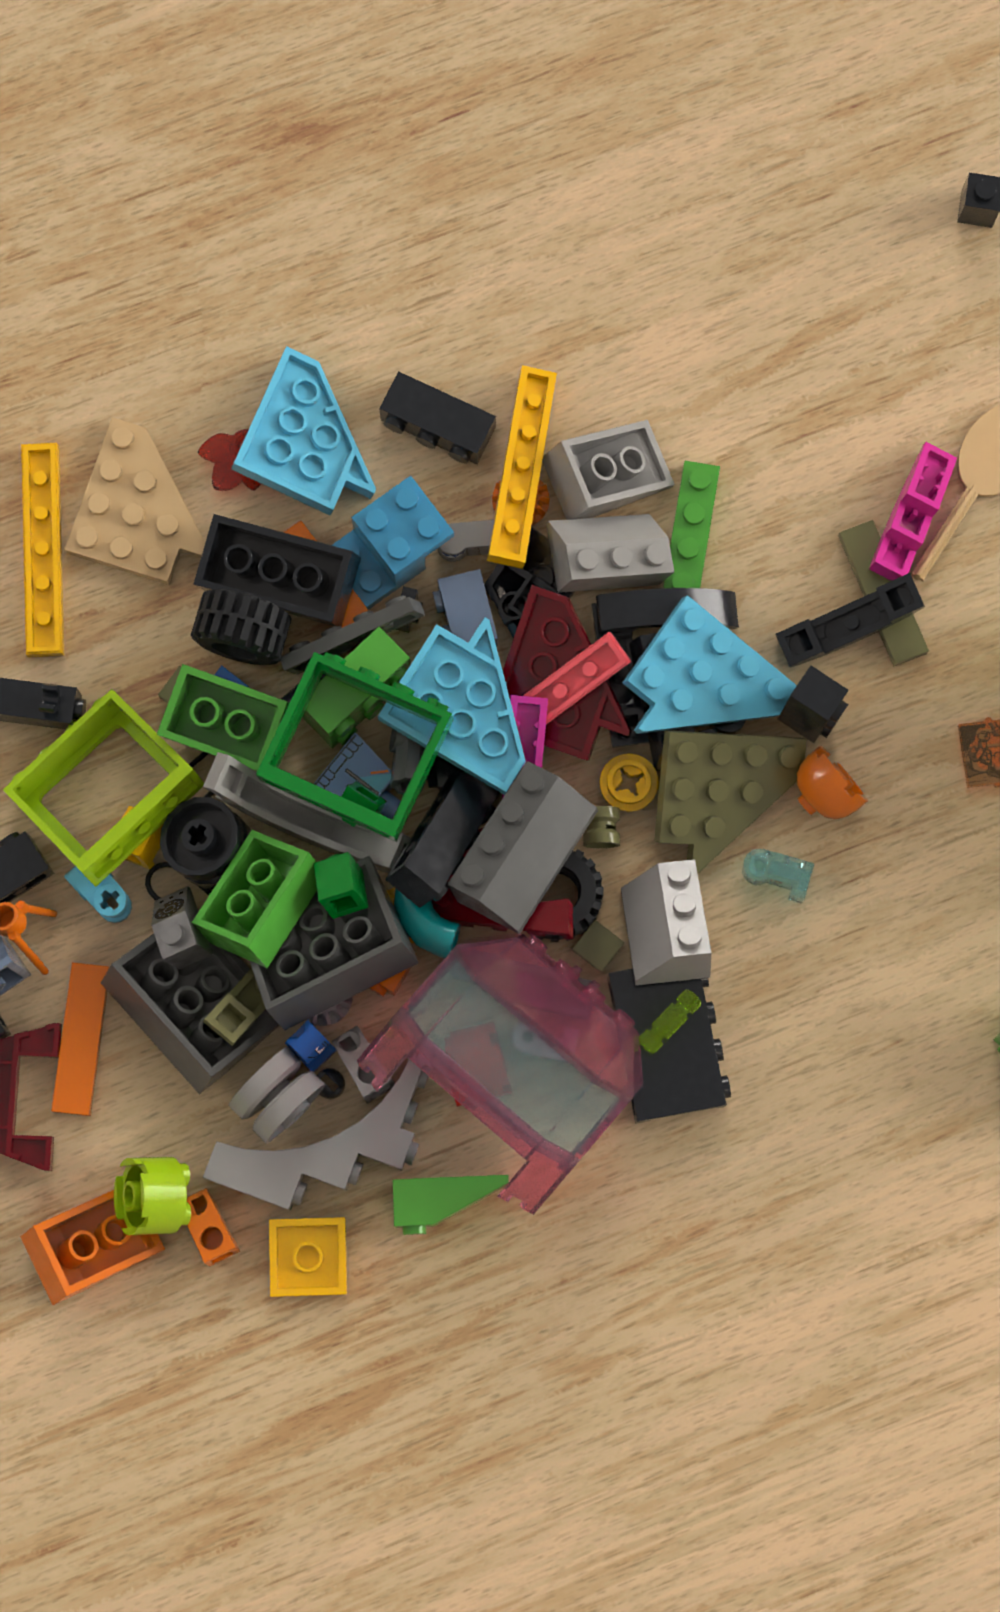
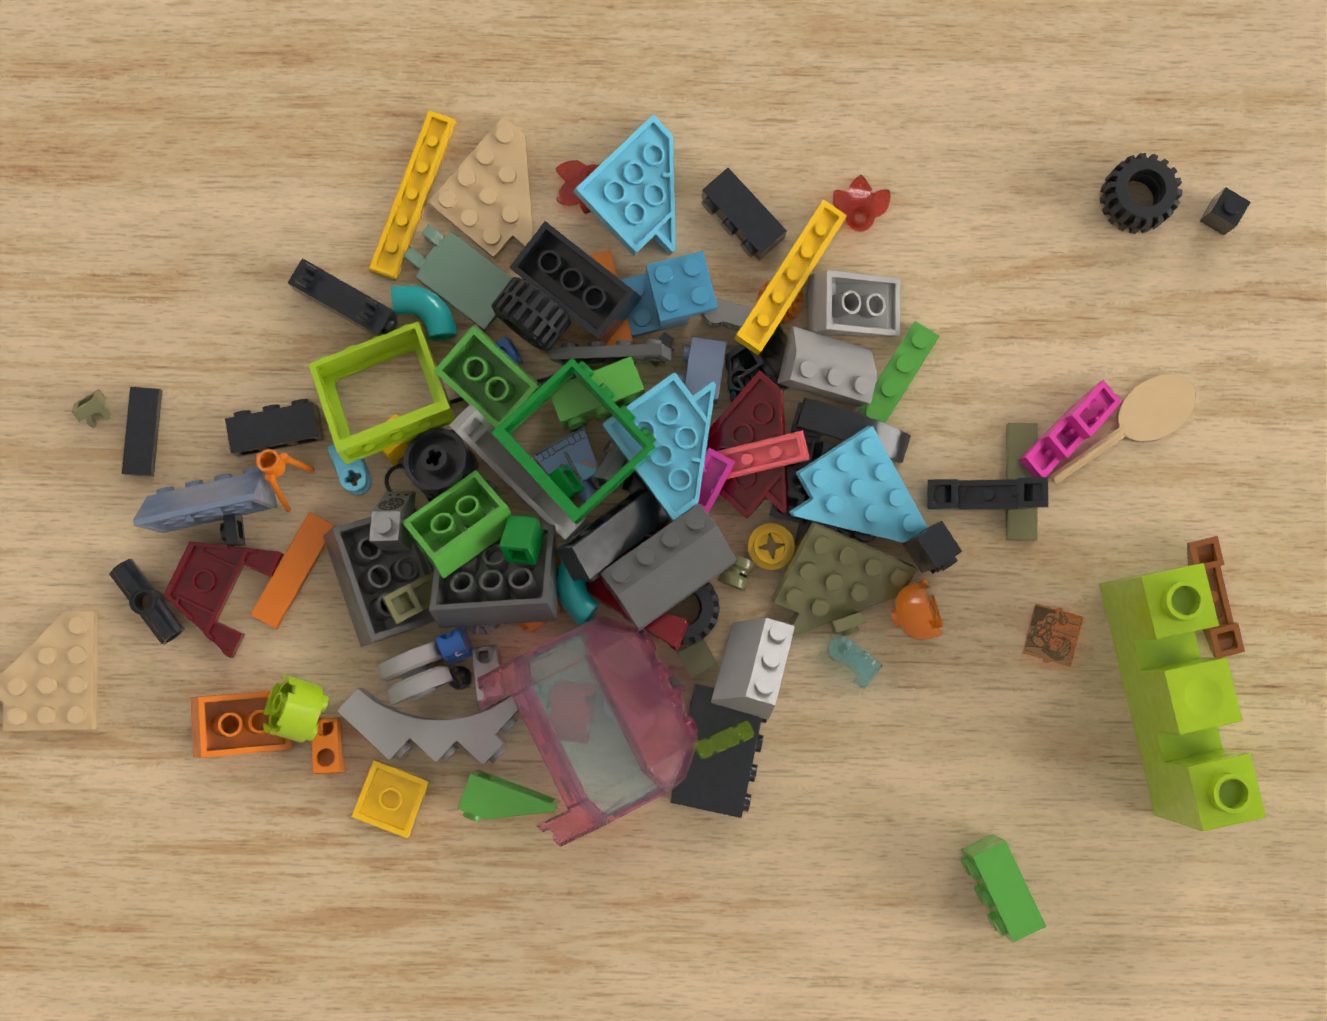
camera: 25 degrees right, 5 degrees up
(114, 669) = (428, 307): none -> teal cylinder
(137, 619) = (459, 276): none -> sand green tile
(566, 350) = (861, 200): none -> clear red plate
(754, 834) = (847, 624): none -> olive plate
(880, 190) = (1156, 177): none -> black tyre

